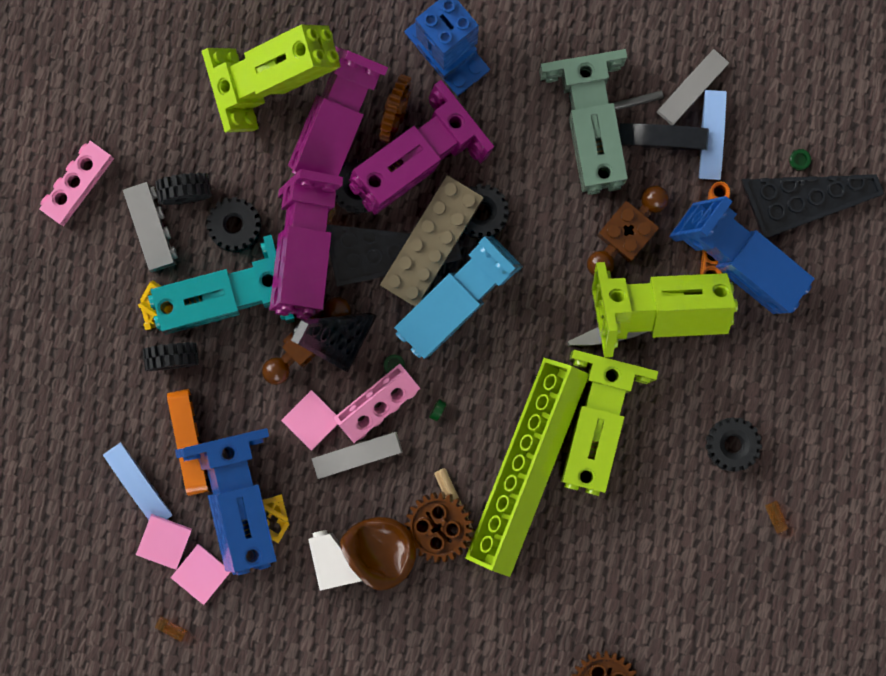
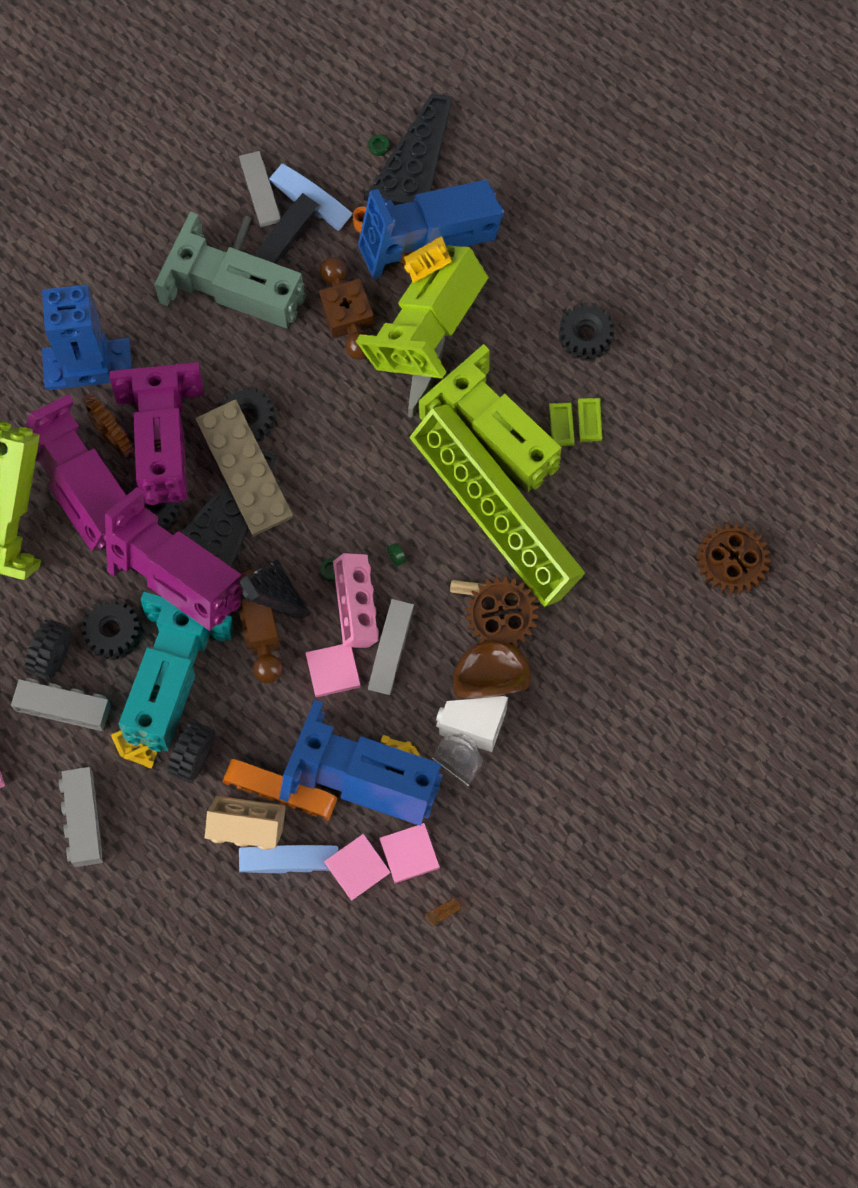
camera: 60 degrees left, 15 degrees down
(72, 304) = (82, 817): none -> light grey brick
(141, 434) = (244, 822): none -> tan brick
(298, 567) = (459, 757): none -> clear tile
(457, 297) = (308, 469): dark azure brick -> none
(637, 473) = (561, 423): none -> lime tile
(656, 494) = (589, 419): none -> lime tile
(705, 276) = (427, 259): none -> yellow hinge
(776, 517) = (672, 335): clear orange piece -> none

